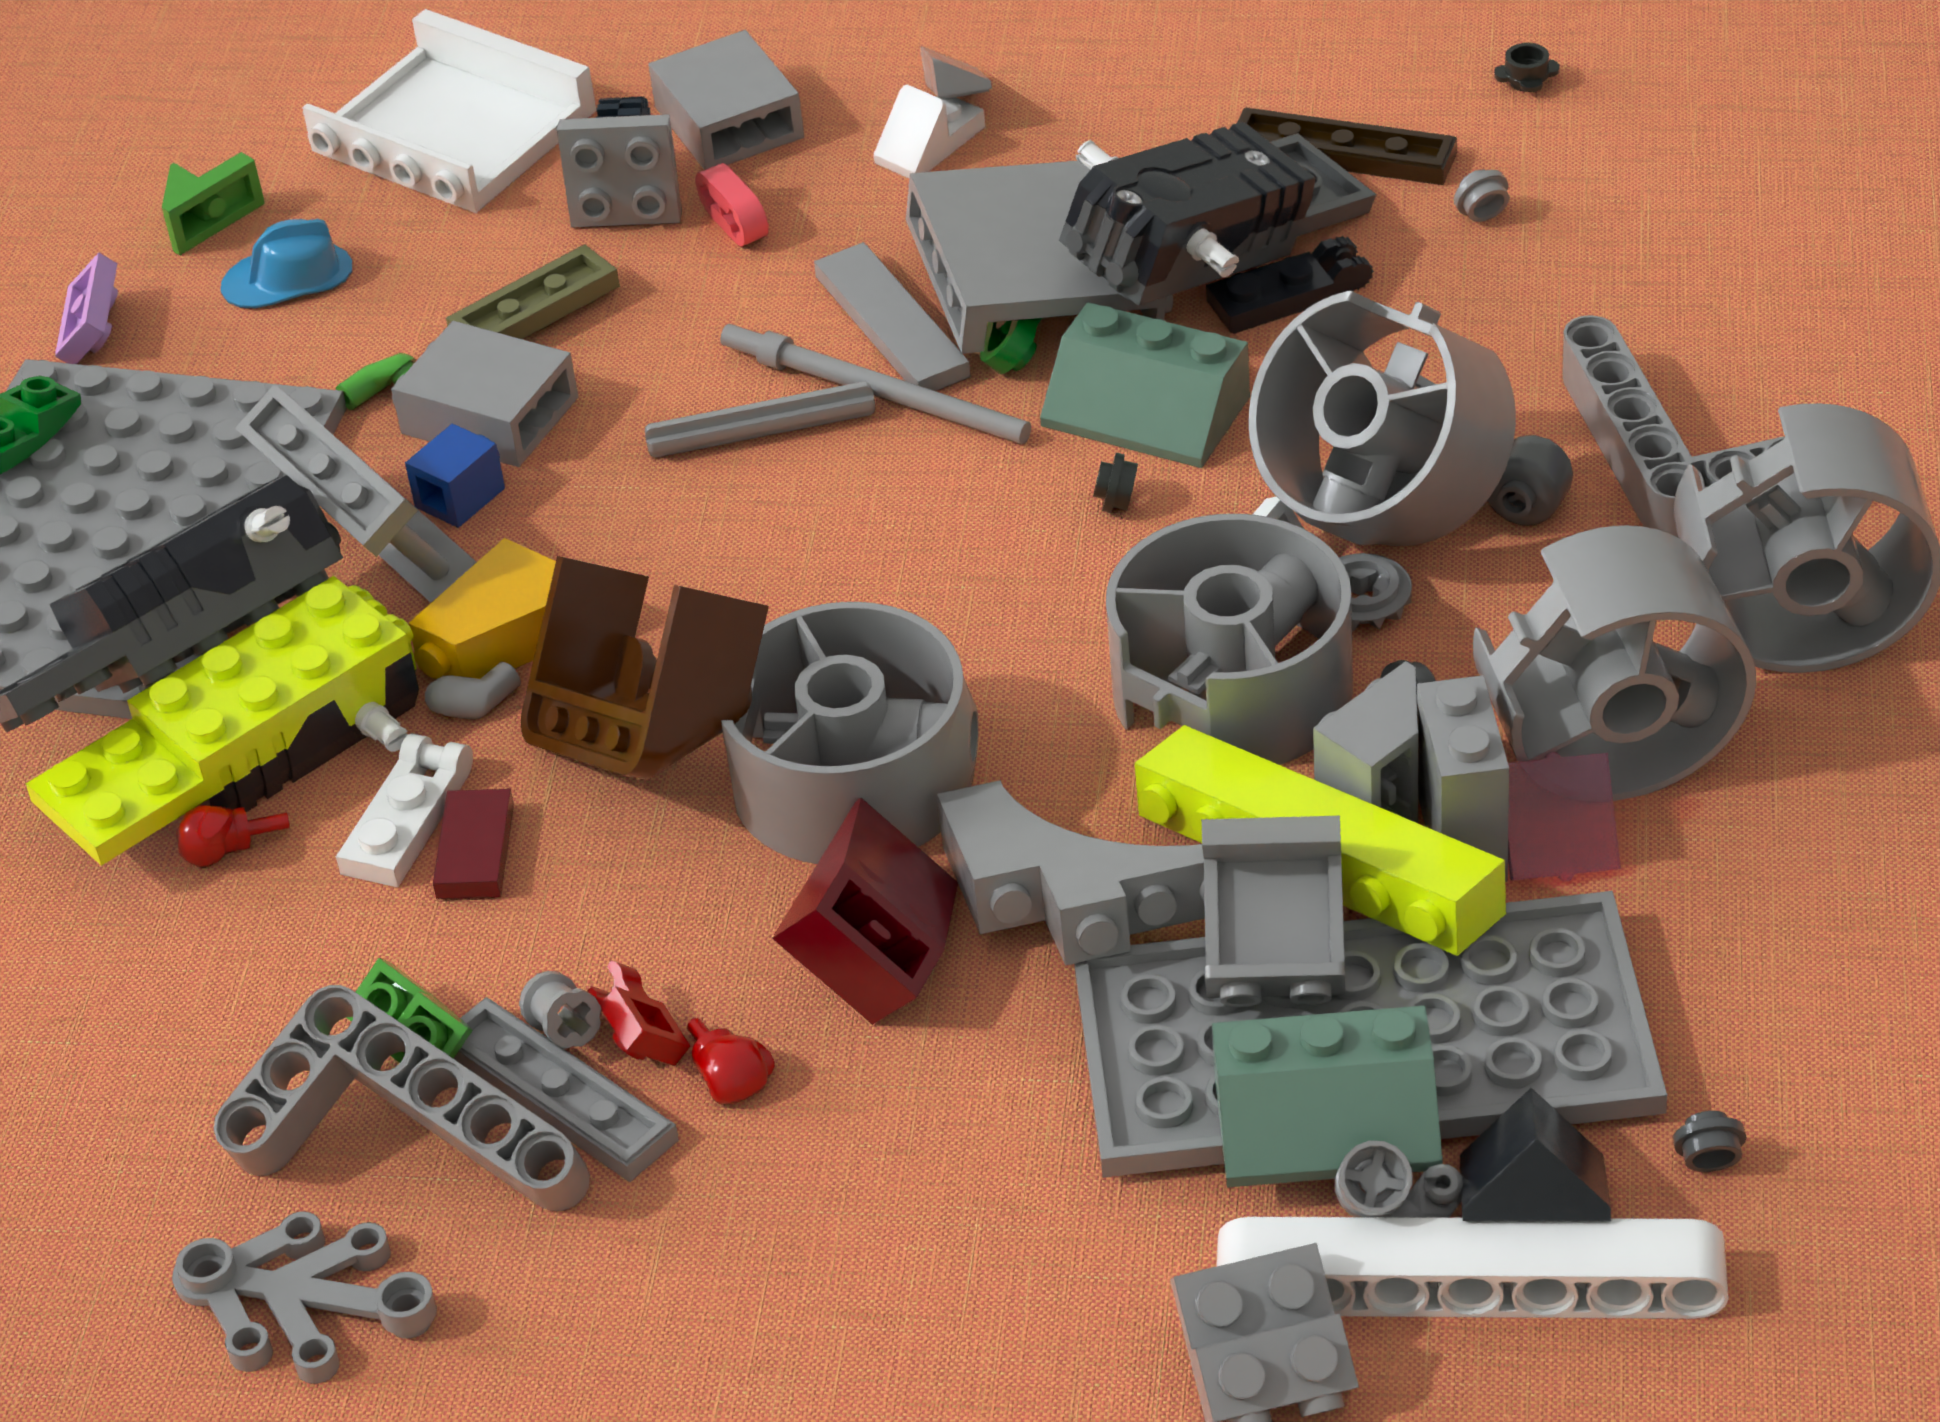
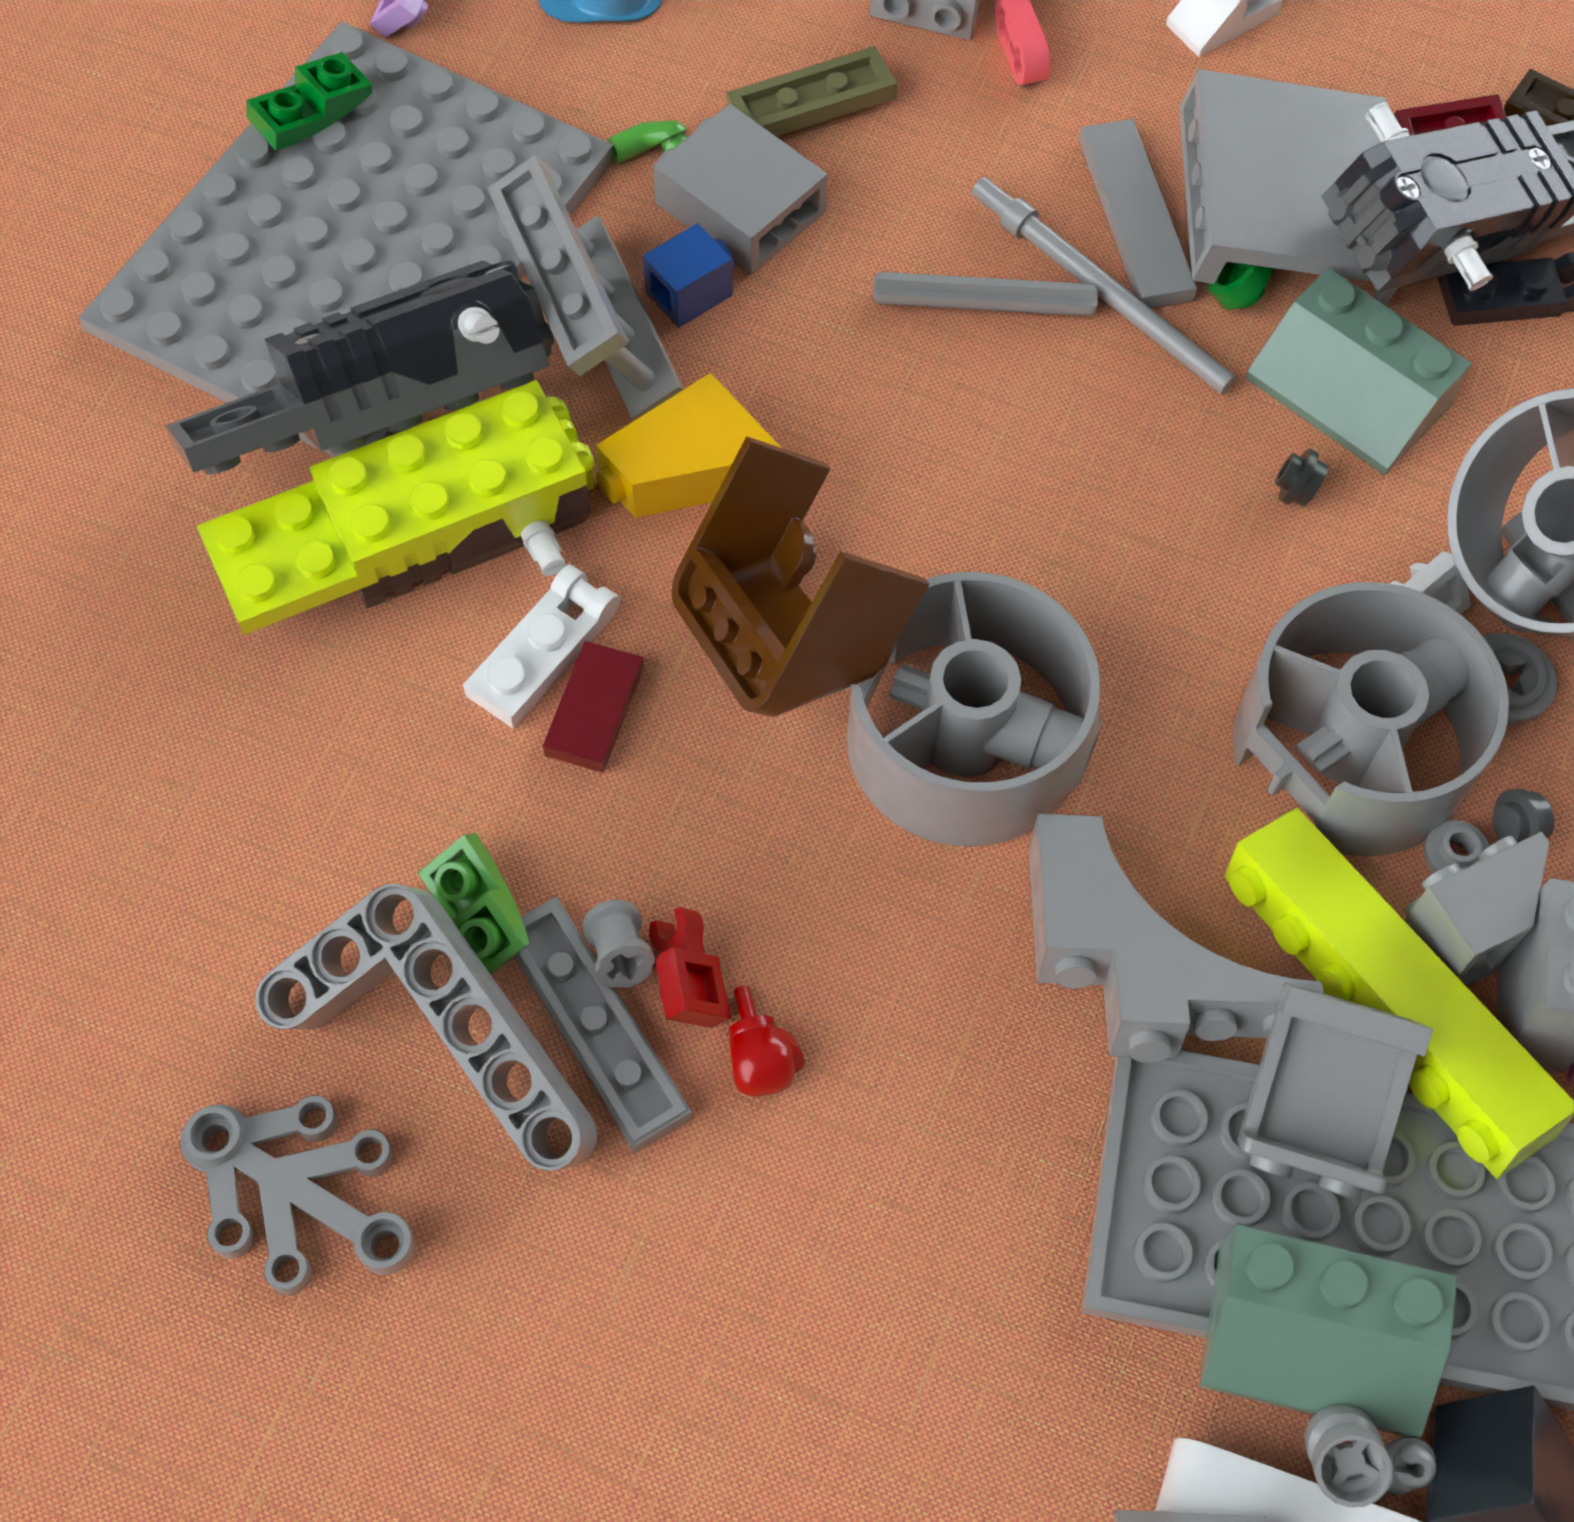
camera: 10 degrees right, 20 degrees up
(215, 830) = (357, 619): red piece -> none
(471, 696) = (636, 534): light grey arm -> none
(871, 915) = (941, 938): dark red slope -> none

